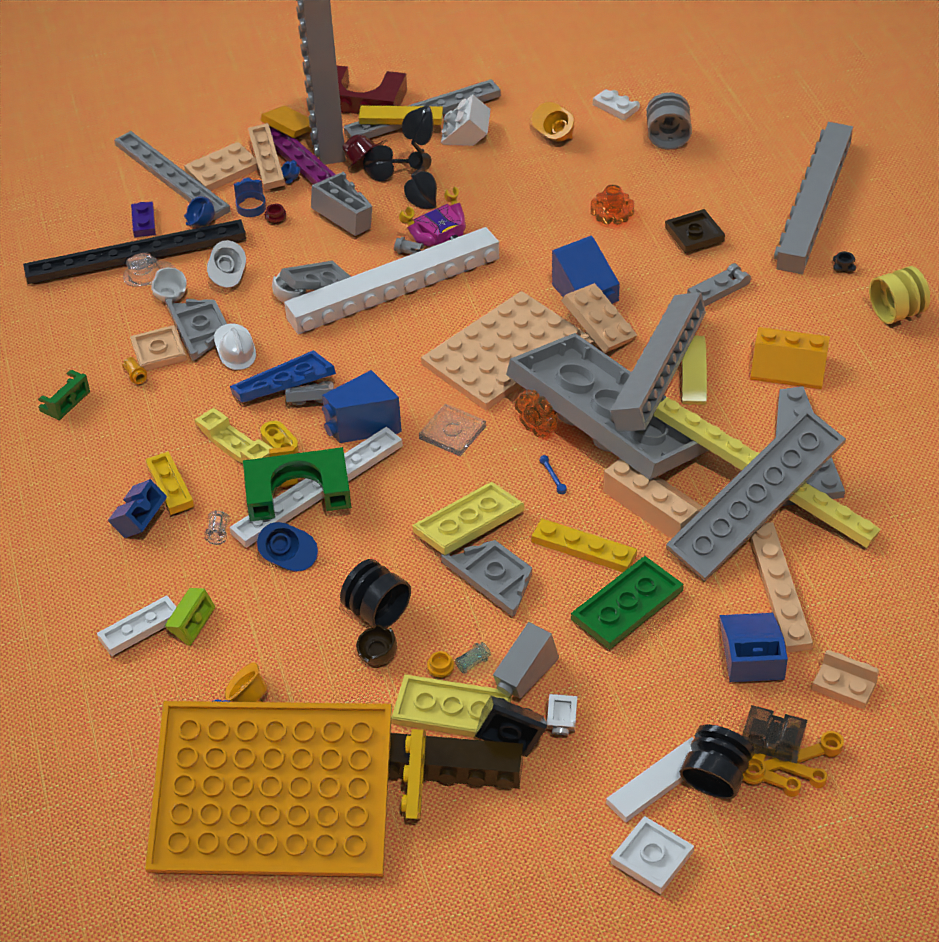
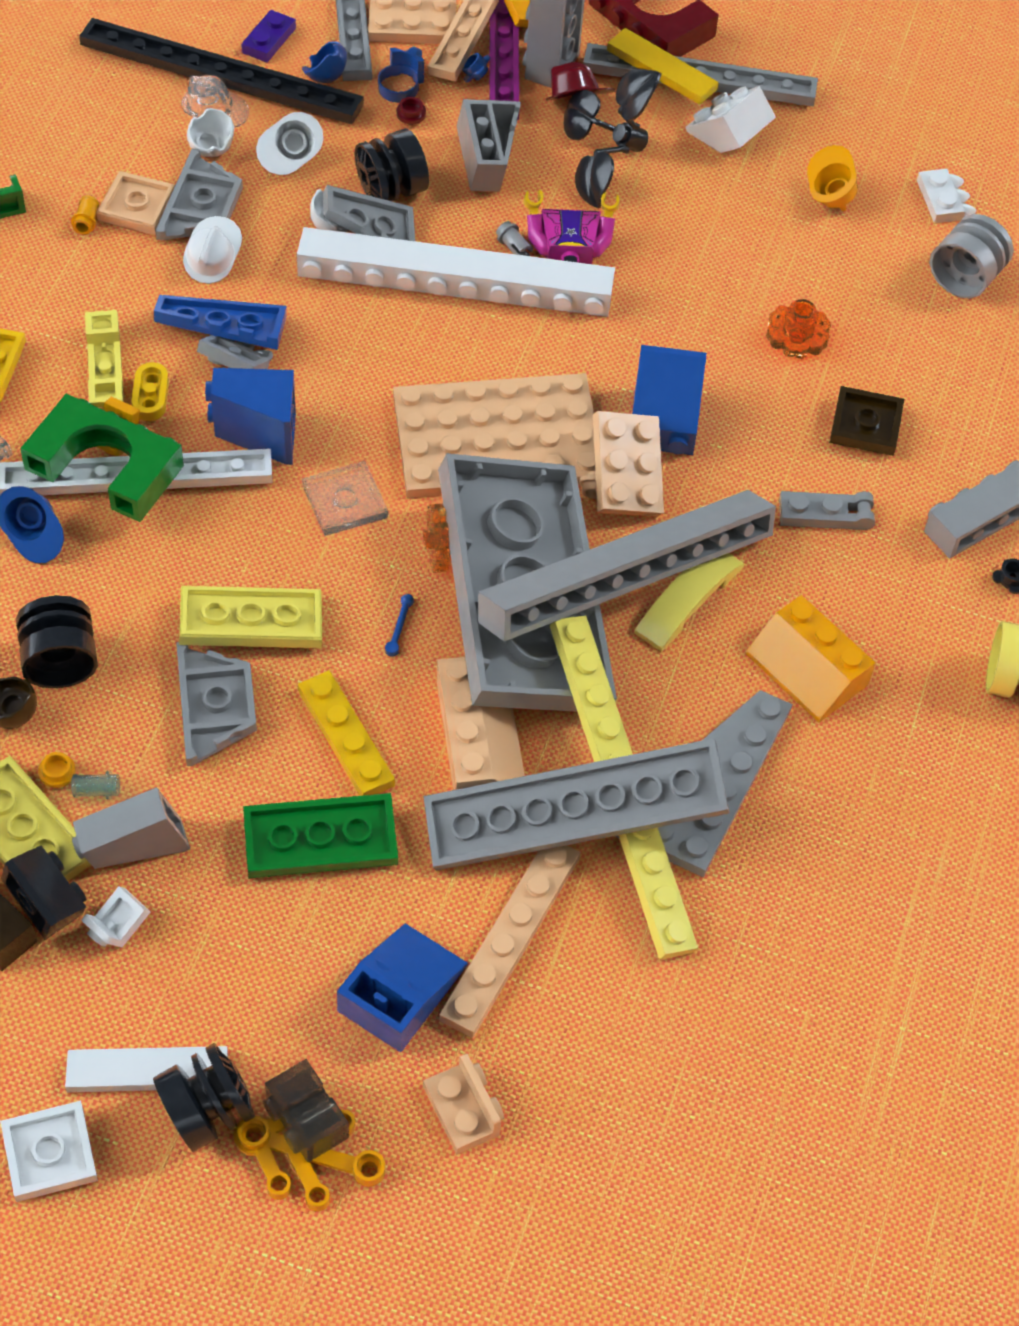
camera: 30 degrees right, 10 degrees up
(303, 241) = (392, 166): none -> black wheel

